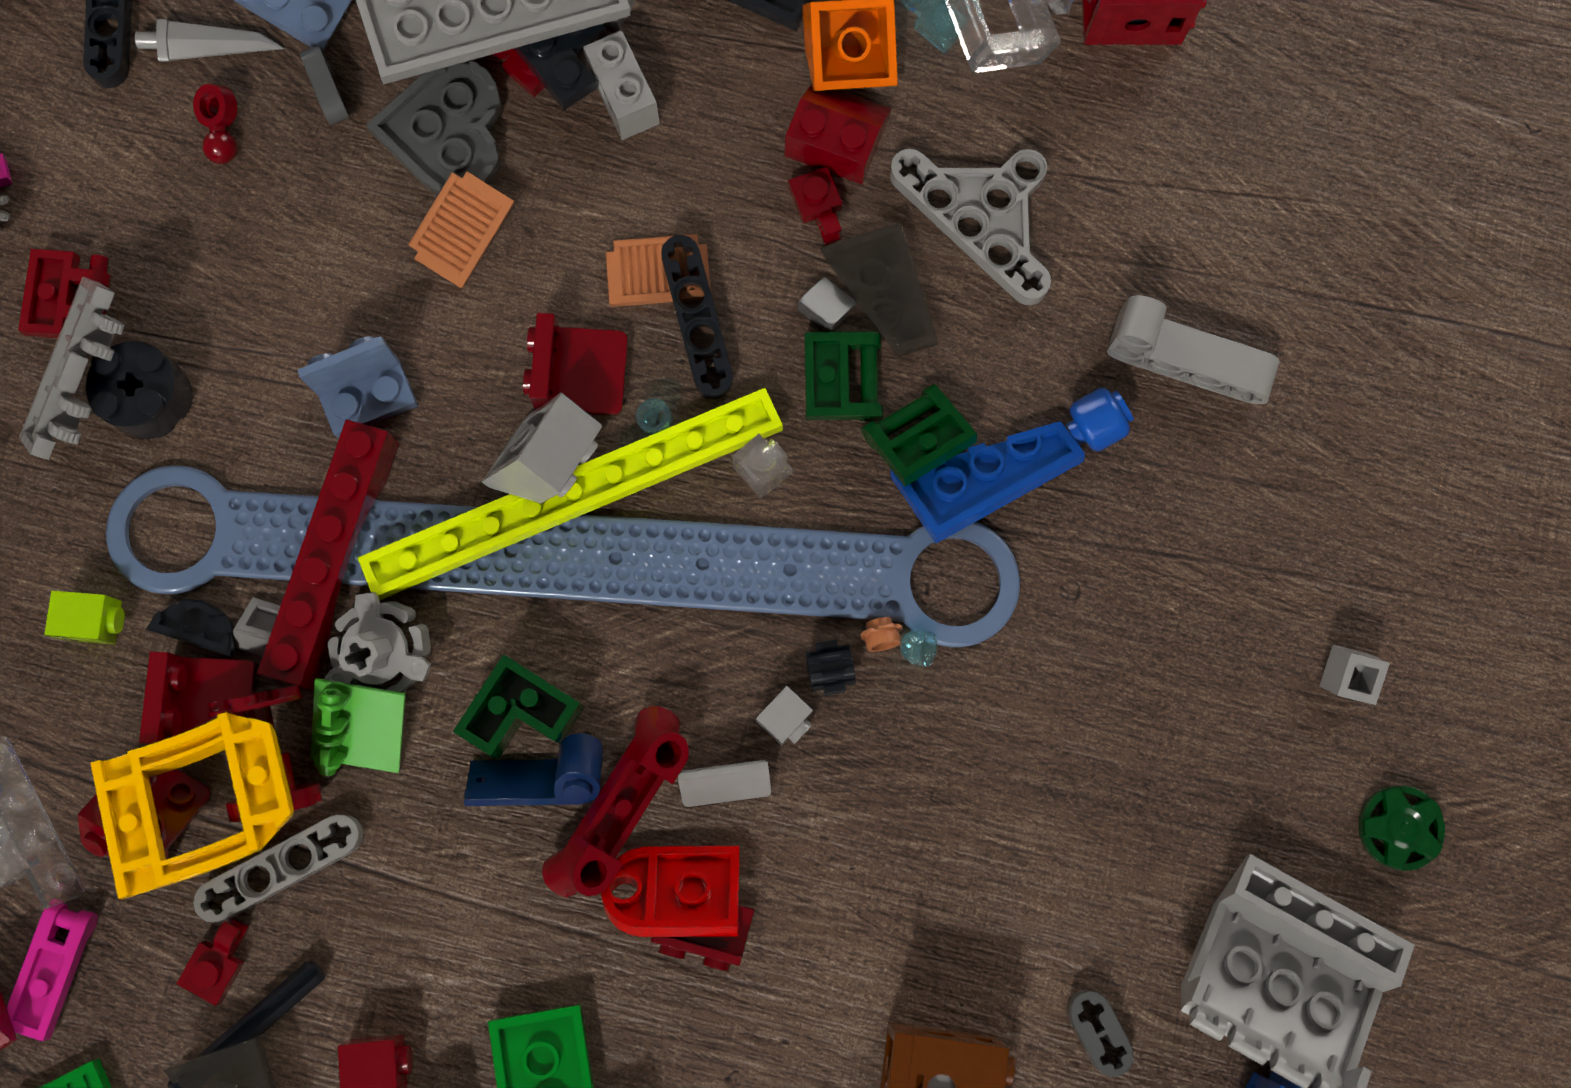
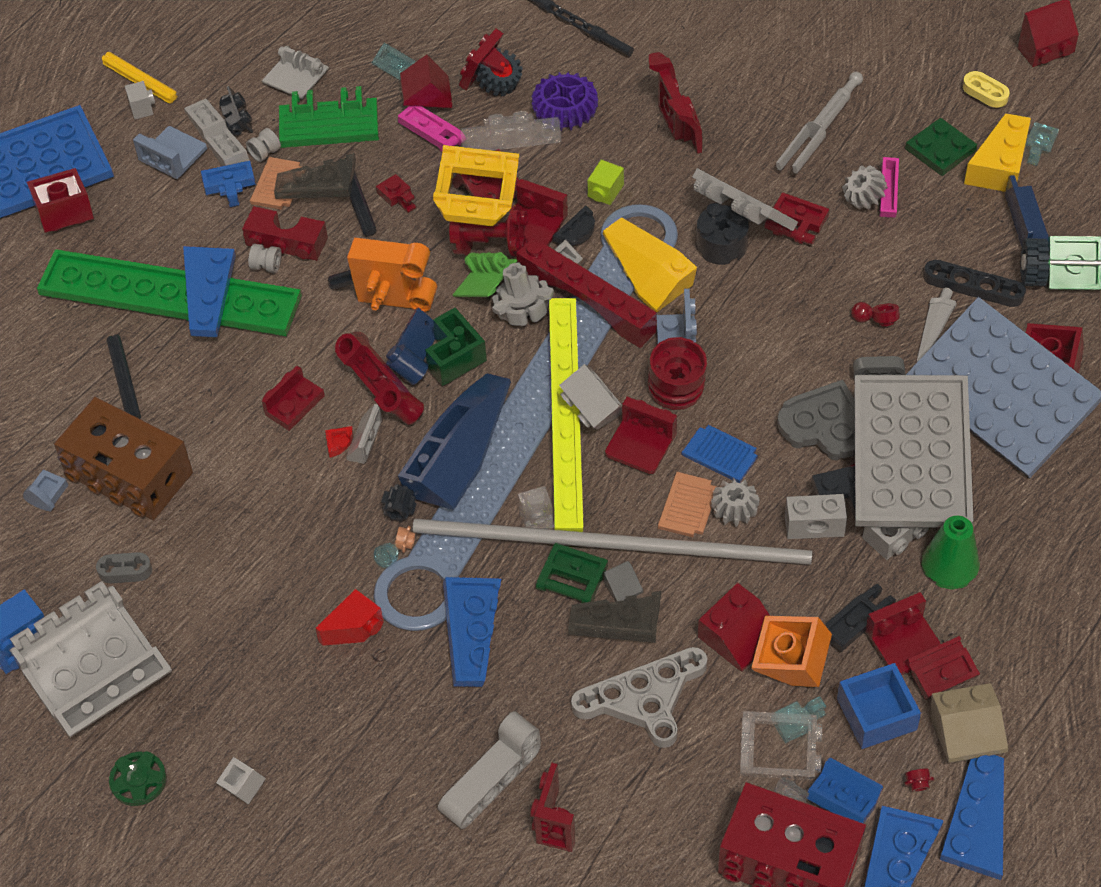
camera: 120 degrees right, 25 degrees down
(240, 474) = (652, 265): none -> yellow wedge
(280, 870) = (430, 230): light grey beam -> none
(425, 877) = (385, 274): none -> orange piece
(430, 336) = (677, 373): none -> dark red wheel
(460, 227) = (757, 408): nougat window -> none
(550, 258) = (721, 453): none -> blue window
(633, 185) = (735, 502): none -> light grey gear
(648, 414) = (592, 468): clear light blue hinge -> none
(677, 892) = (315, 390): red tile -> none
(689, 622) = (456, 444): none -> dark blue wedge
(700, 316) = (647, 505): black beam -> none
(745, 820) = (338, 440): none -> red tile
(771, 355) = (613, 541): none -> light grey piece
(786, 717) = (382, 472): light grey plate -> none
(818, 201) = (694, 602): dark red plate -> none
(924, 444) = (506, 601): dark green plate -> none
(1049, 643) = (351, 621): none -> red slope
(1099, 419) = (474, 703): blue head -> none
(1235, 245) = (552, 824): none -> dark red bracket

